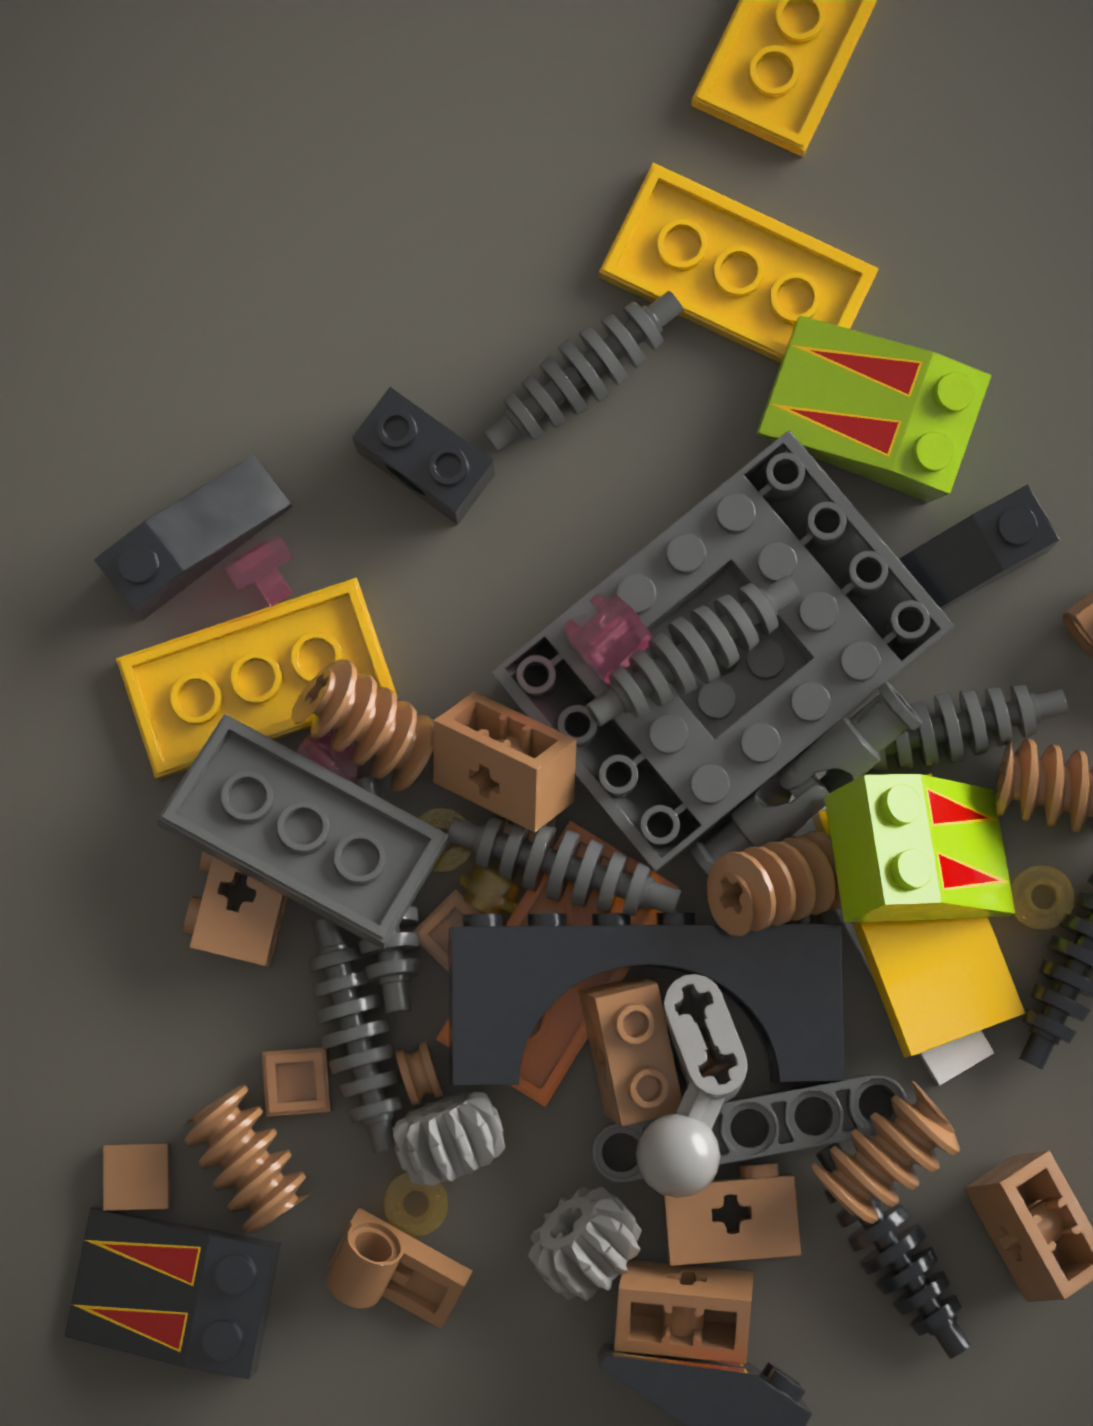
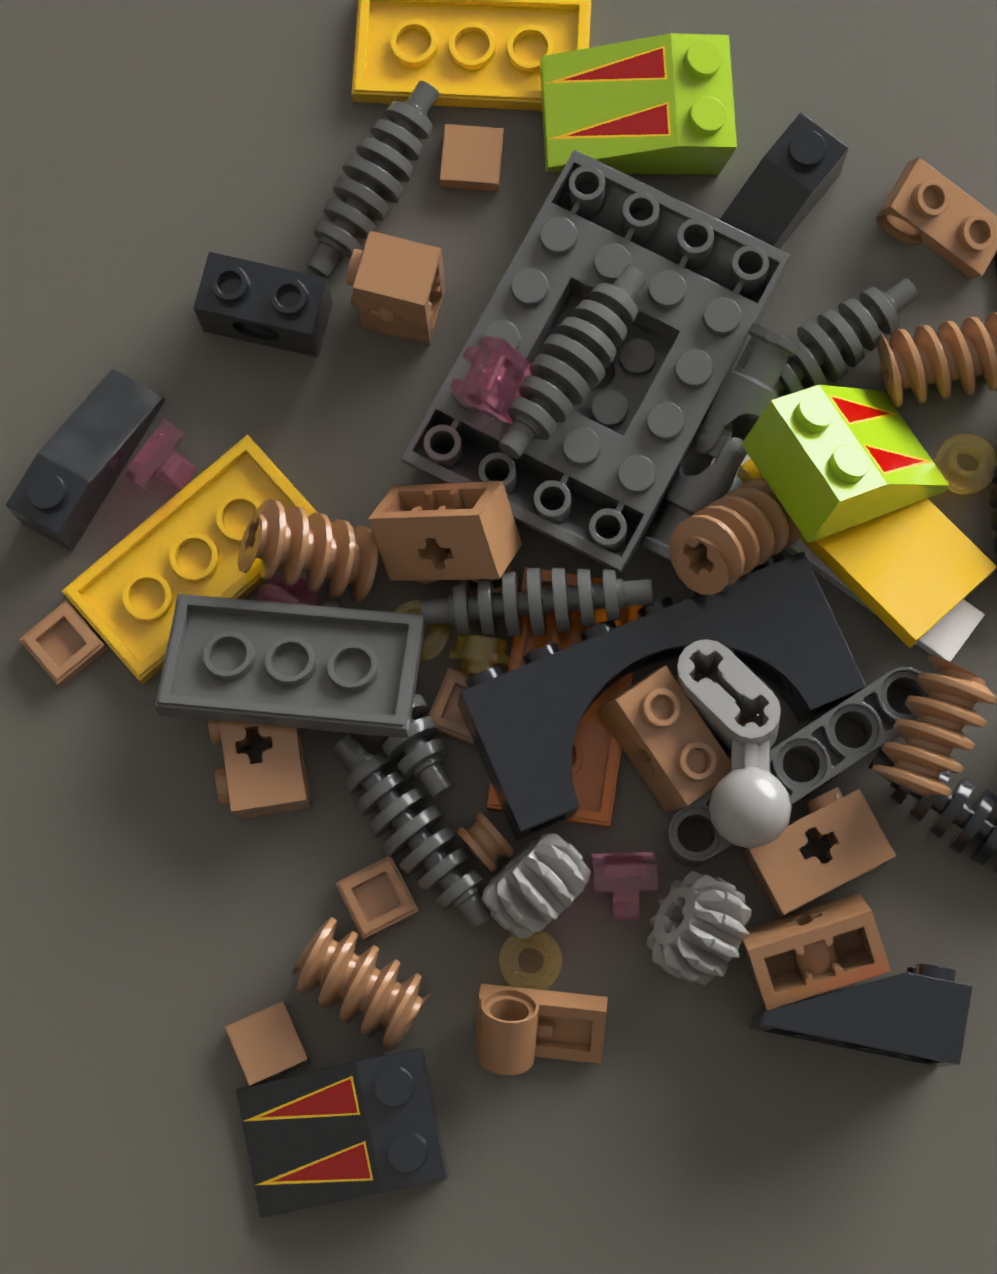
camera: 20 degrees left, 5 degrees down
(97, 710) = (63, 644): none -> medium nougat tile
(537, 1162) = (624, 877): none -> clear pink tile
(558, 496) = (397, 286): none -> medium nougat brick
(690, 386) = (471, 157): none -> medium nougat tile

